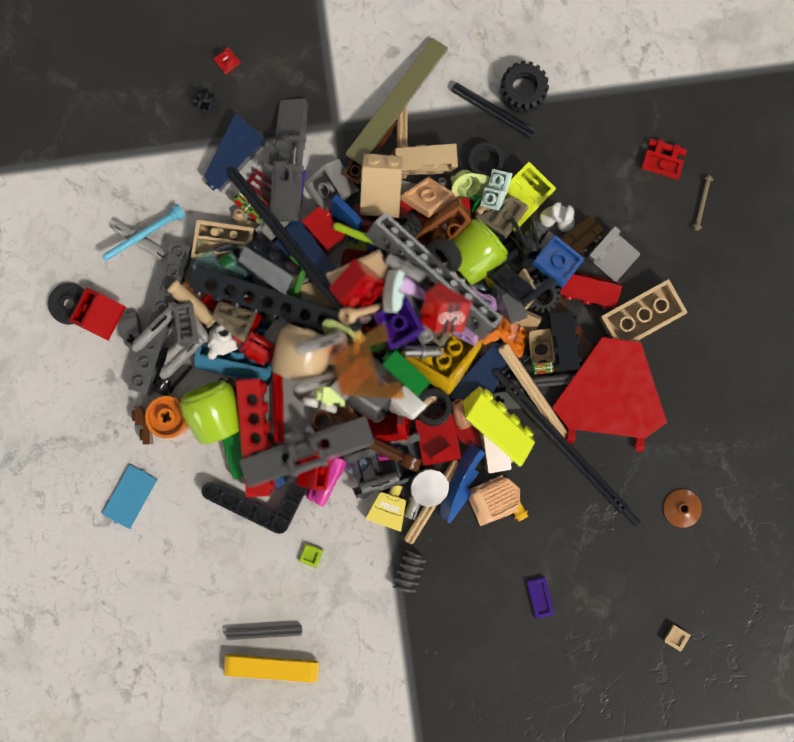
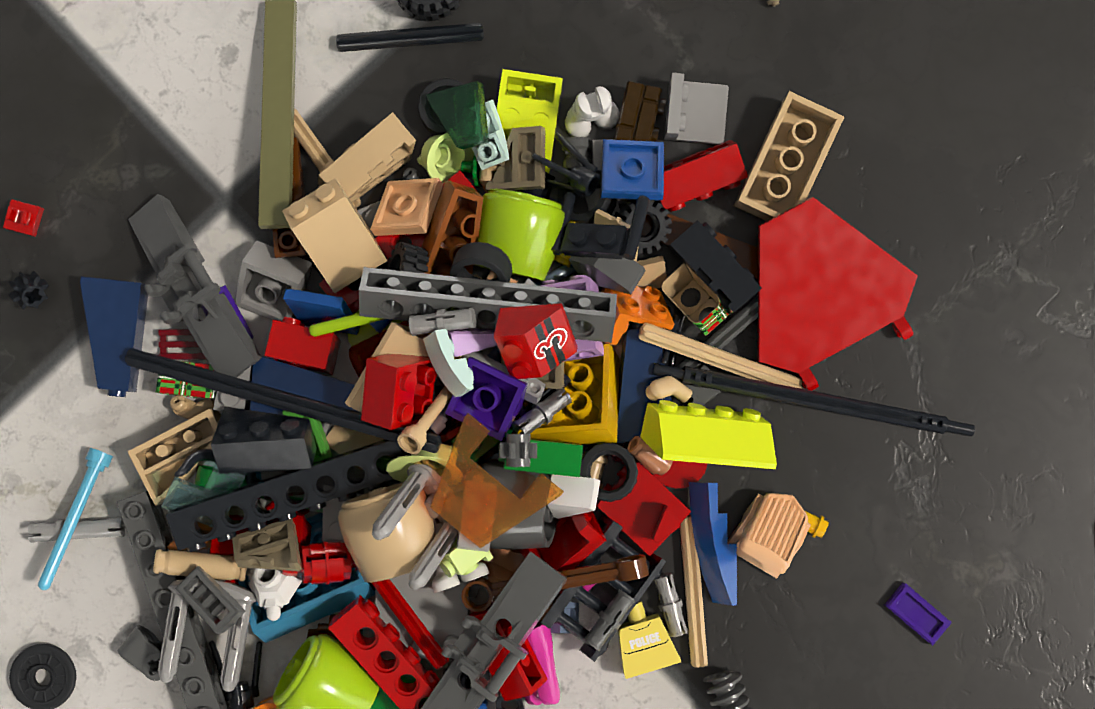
camera: 40 degrees left, 0 degrees up
(97, 313) = (86, 666): red slope -> none
(396, 360) = (518, 450): none -> dark grey gear
(429, 487) = (677, 578): tile -> none
(491, 170) = (462, 114): none -> clear green wing
(494, 457) = (733, 481): slope -> none
(495, 385) = (666, 387): none -> tan arm
(673, 505) = (999, 369): dark orange dish -> none

